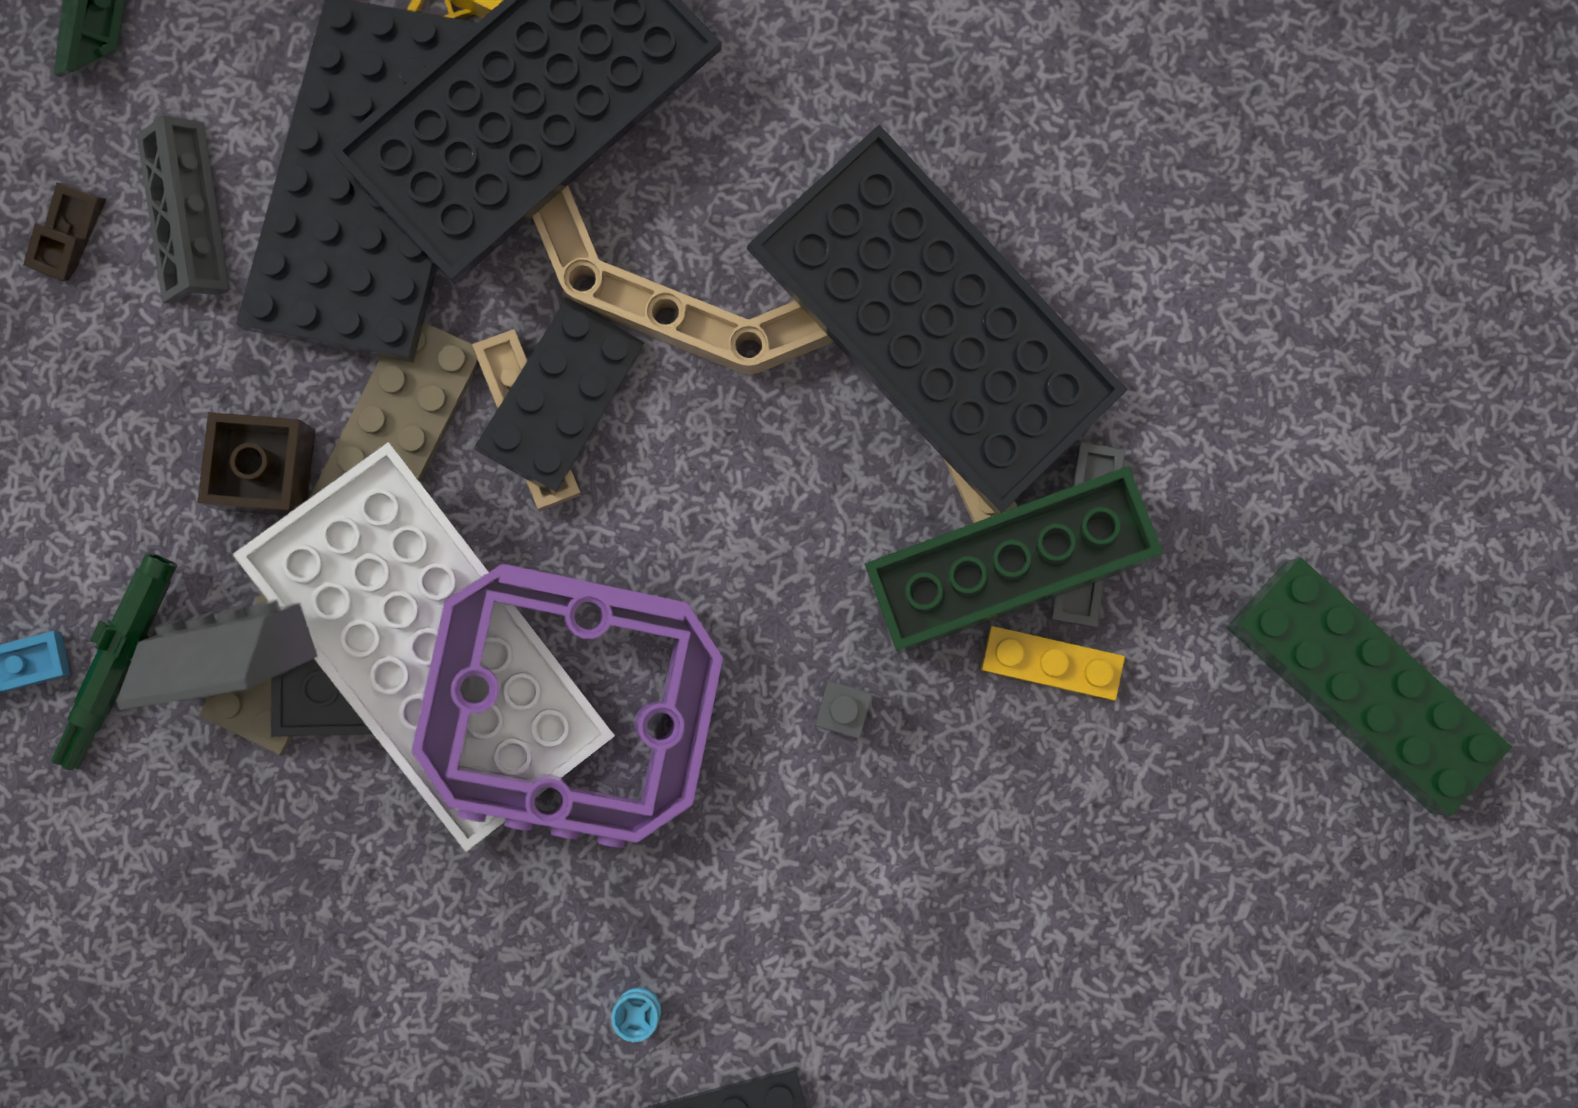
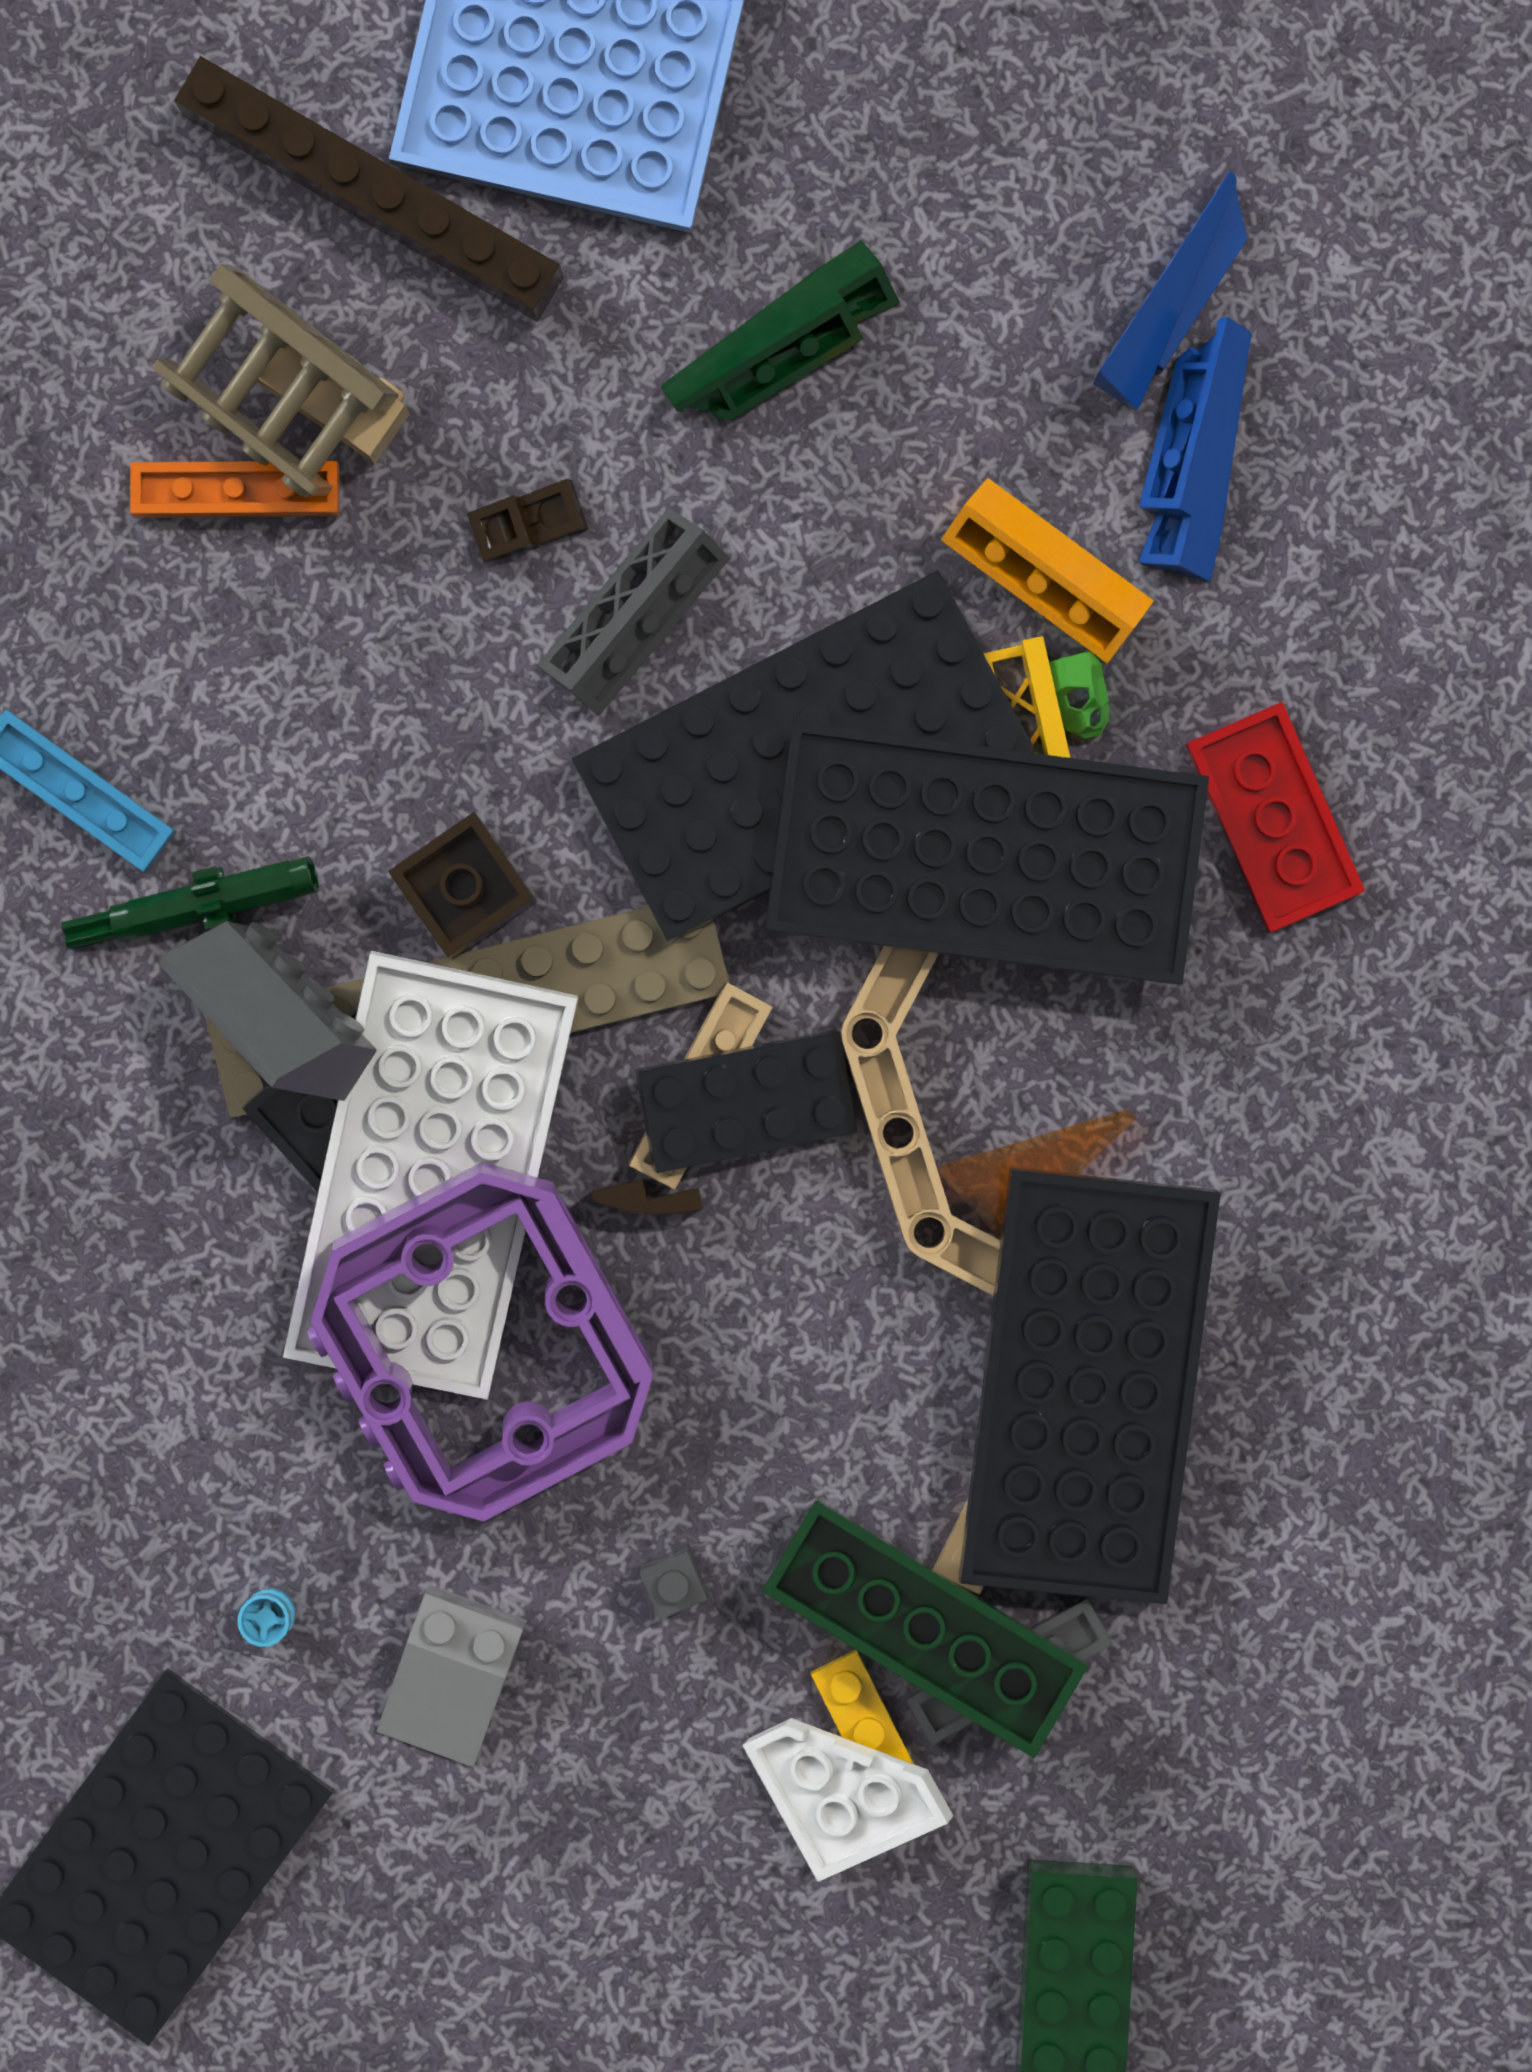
camera: 50 degrees right, 5 degrees up
(561, 525) = (634, 1198): none -> dark brown slope
(747, 283) = (984, 1176): none -> clear orange wing
(782, 919) = (451, 1675): none -> light grey slope
(1083, 714) = (842, 1795): none -> white plate

